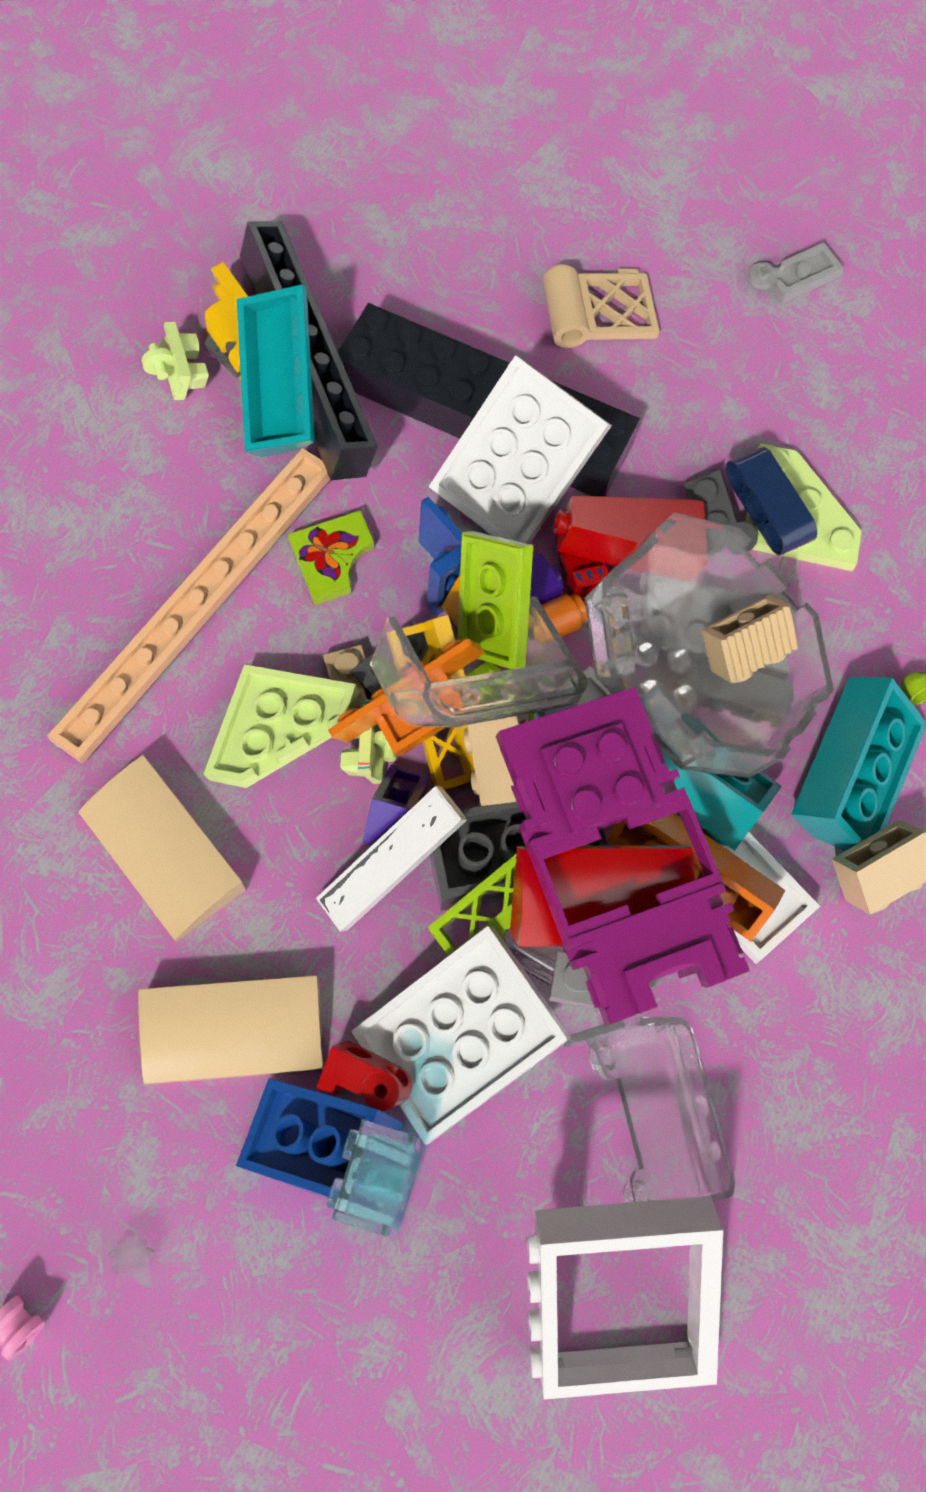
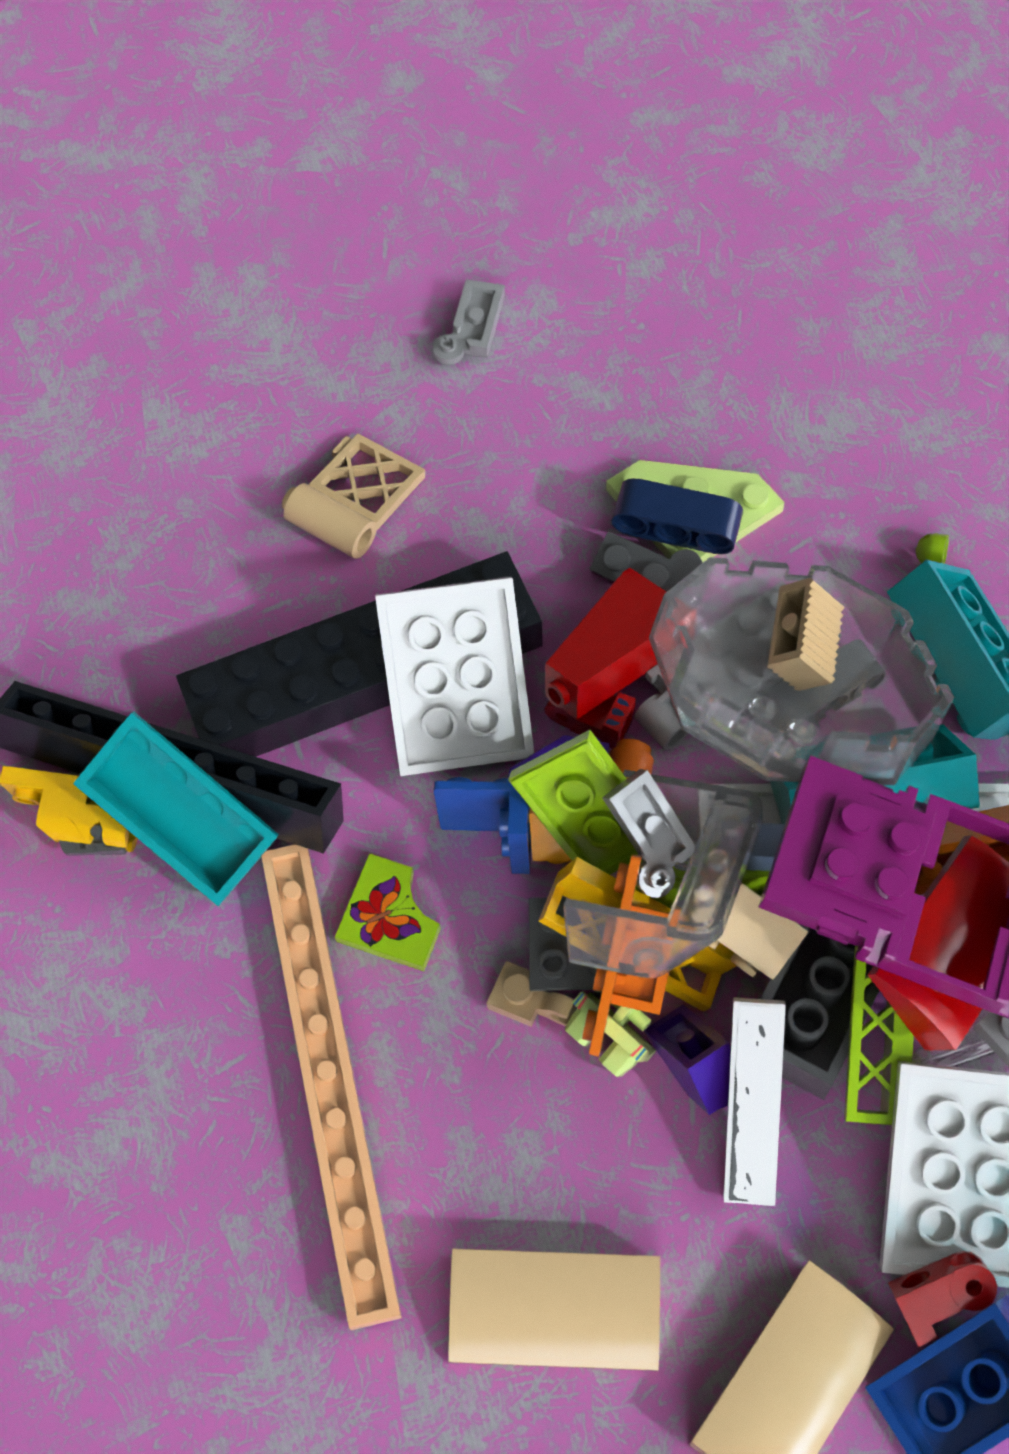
camera: 40 degrees left, 5 degrees down
(170, 361) = (56, 898): yellowish green hips -> none
(274, 722) = (522, 1098): yellowish green plate -> none
(508, 635) = (651, 830): none -> light grey hinge

